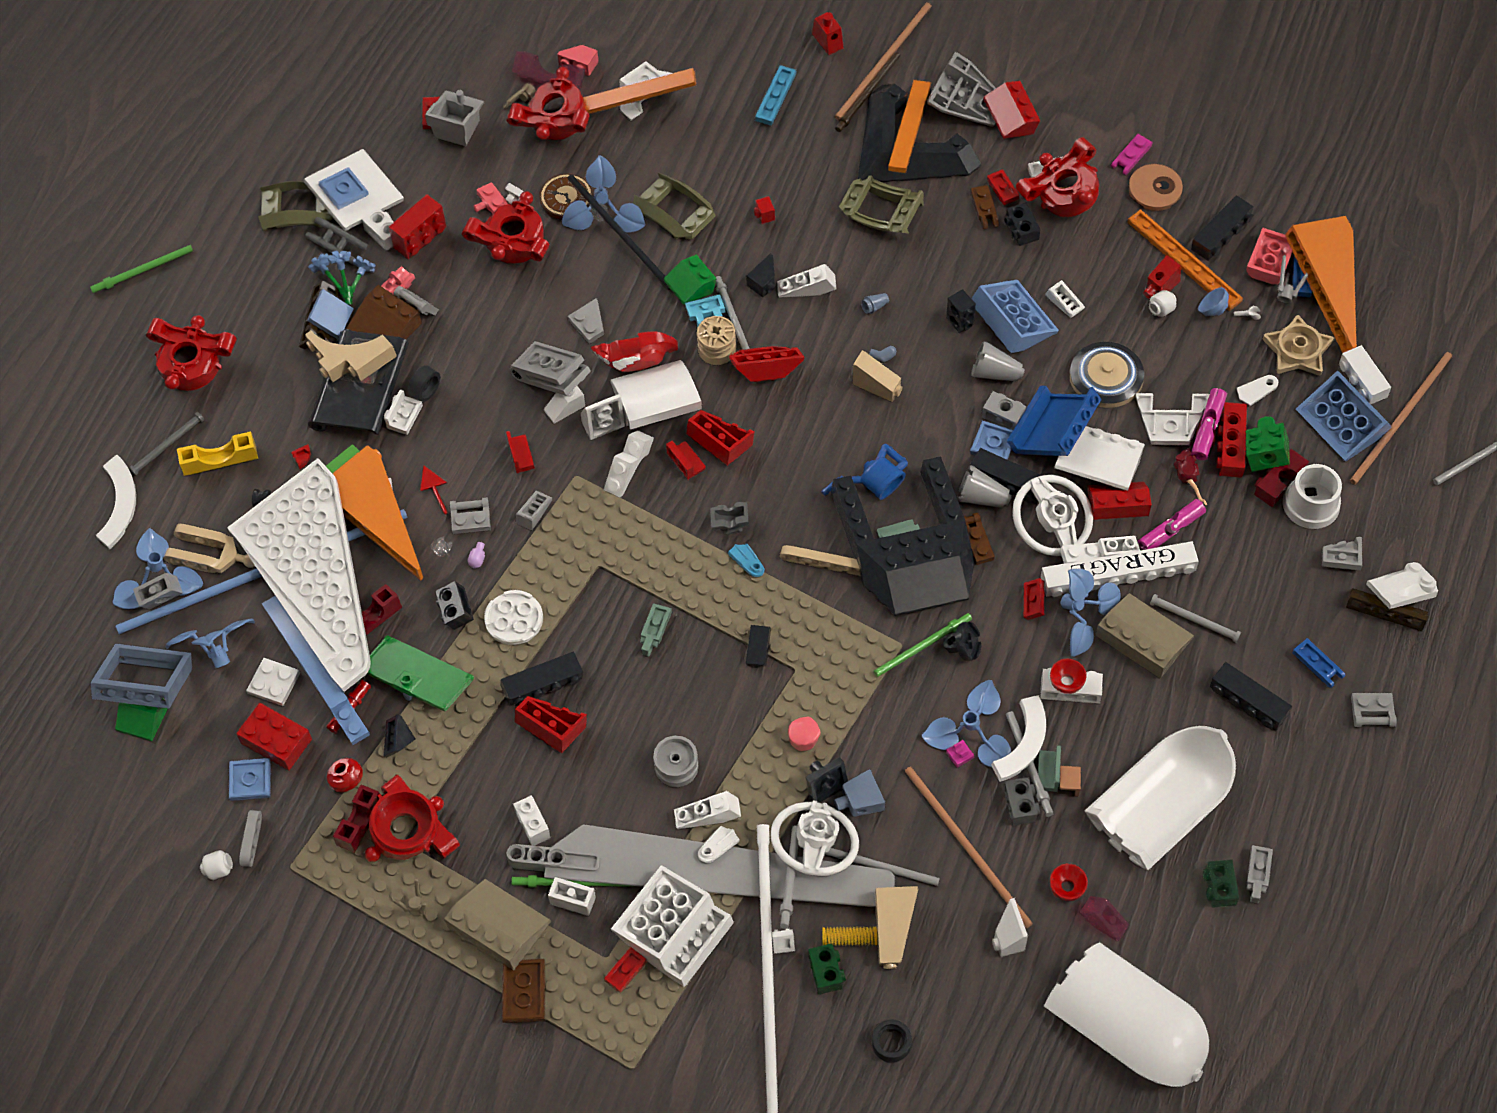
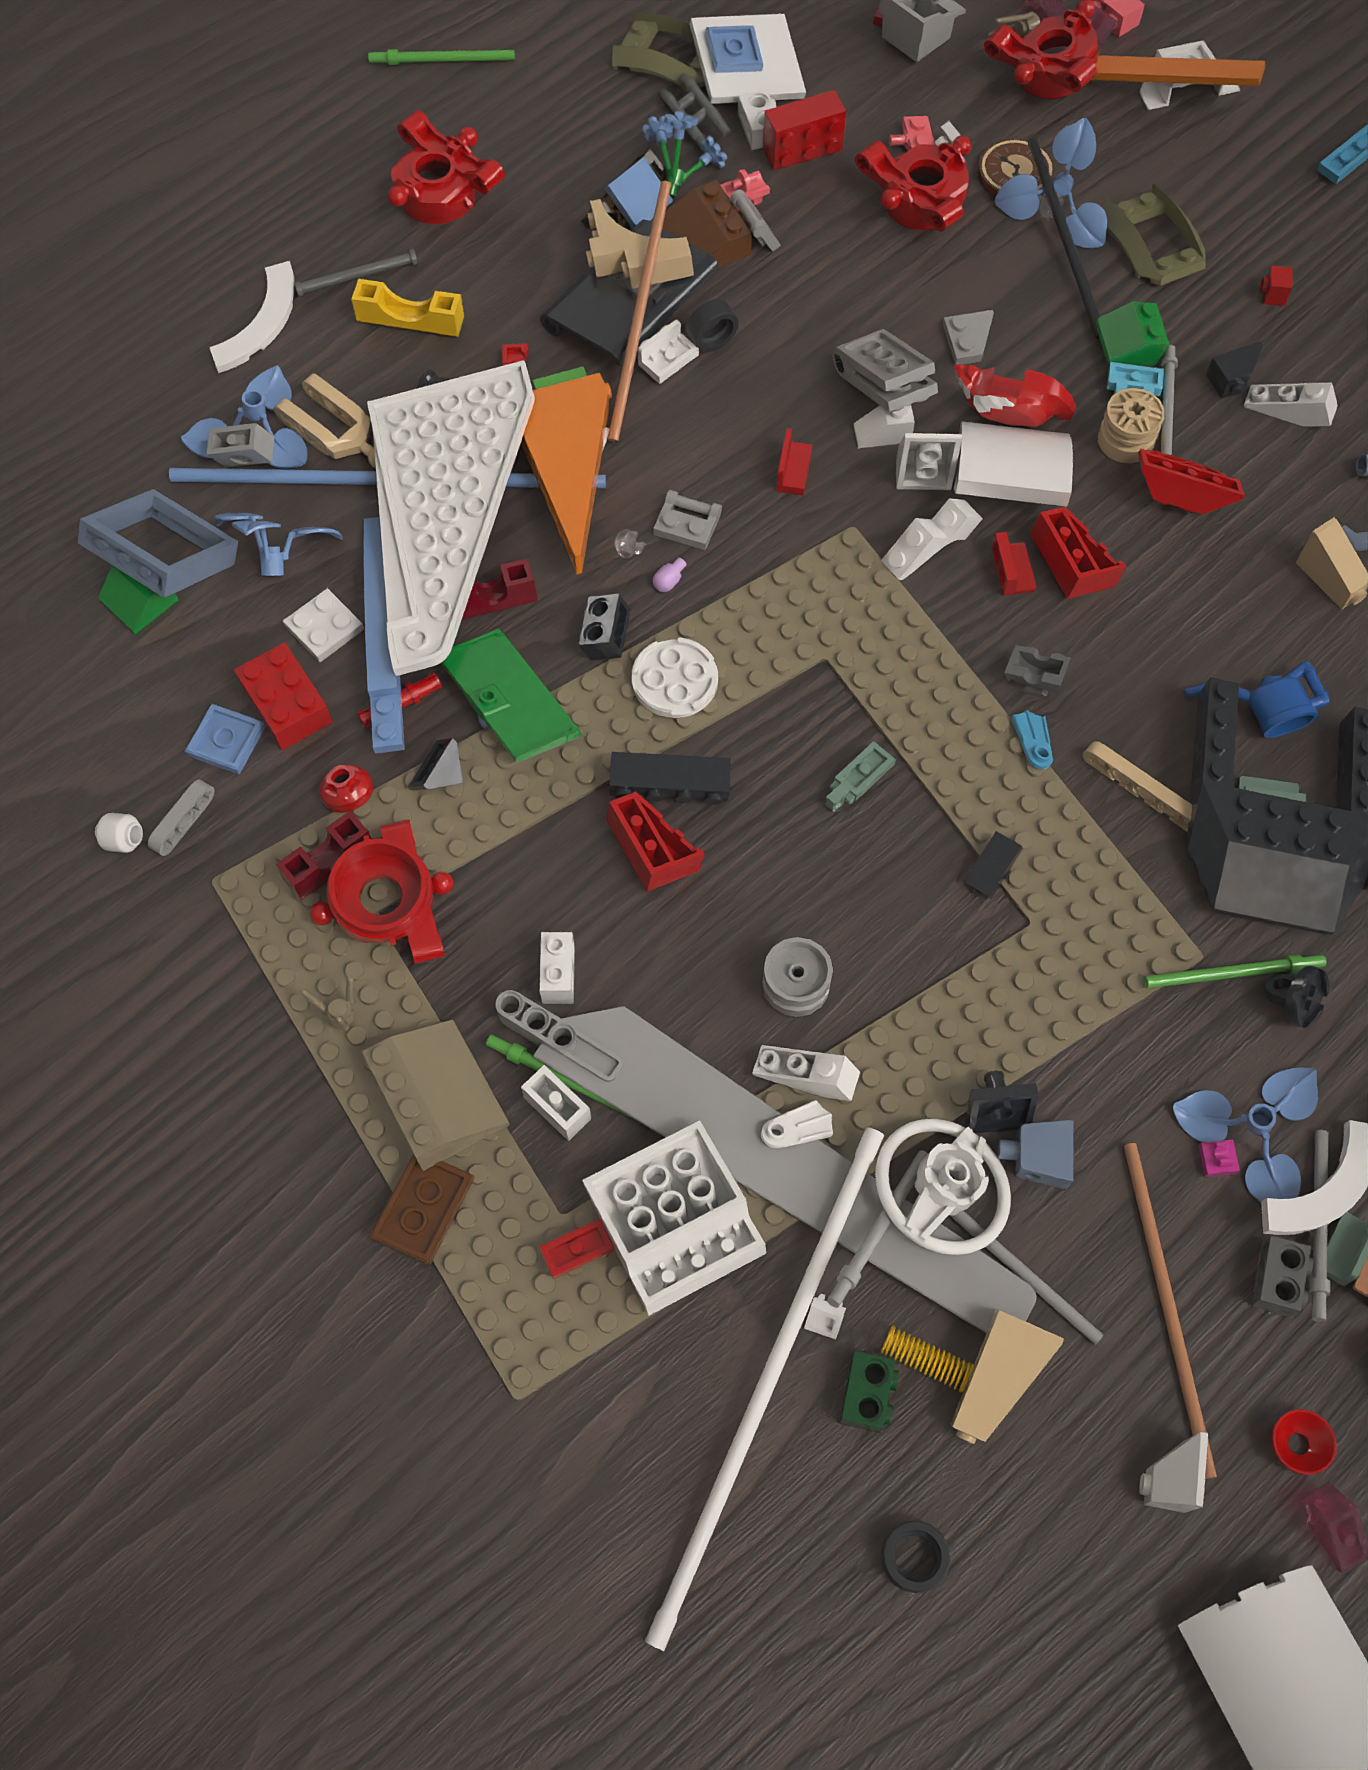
camera: 25 degrees right, 5 degrees up
(376, 396) = (639, 311): none -> nougat piece
(431, 480) = (659, 454): red piece -> none
(530, 520) = (762, 559): light grey slope -> none
(803, 733) = (999, 1022): coral hair -> none

